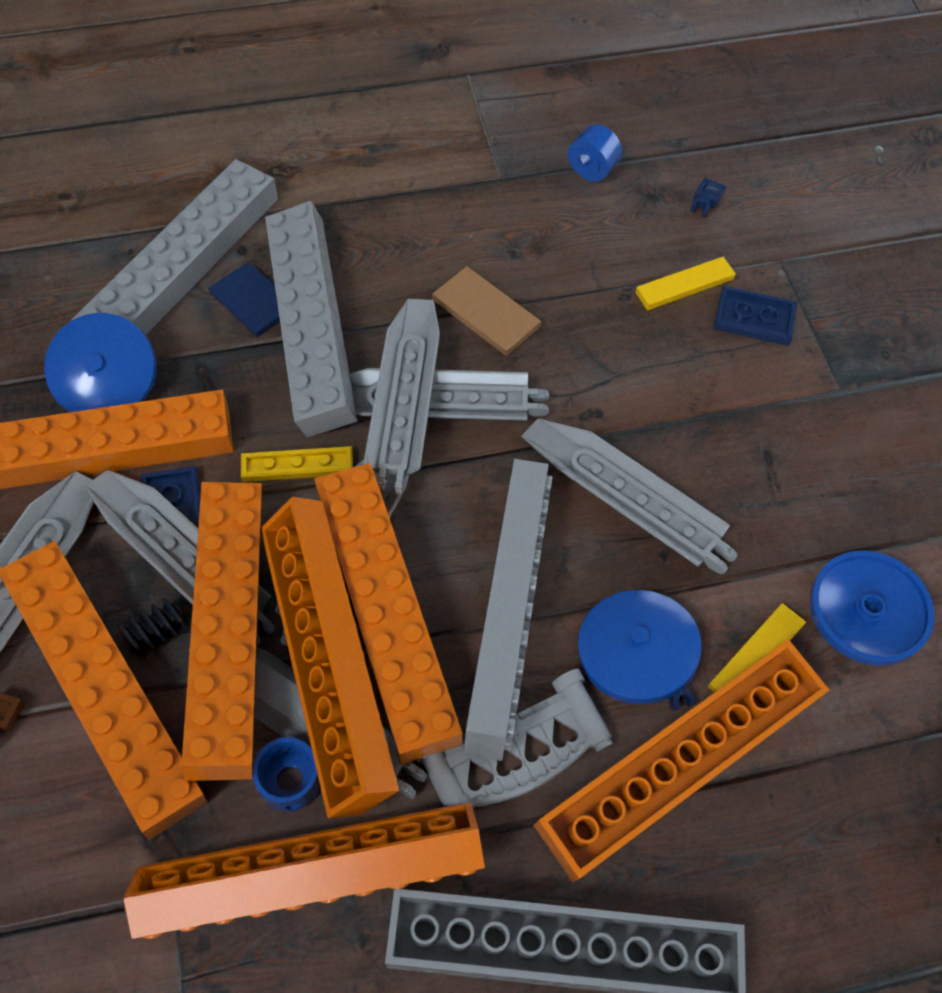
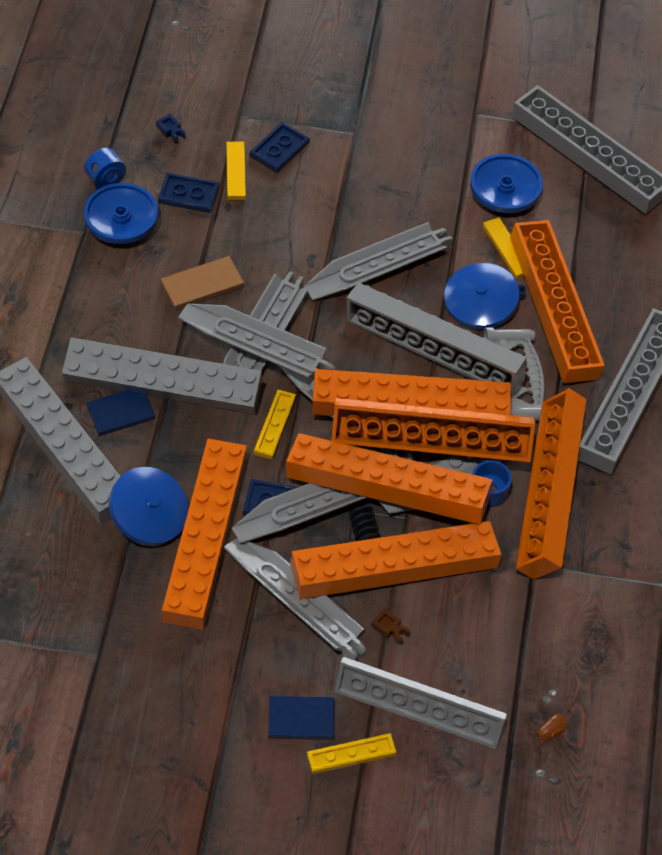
camera: 70 degrees left, 5 degrees down
(539, 192) = (121, 213): none -> blue dish
(620, 250) = (188, 192): none -> dark blue tile

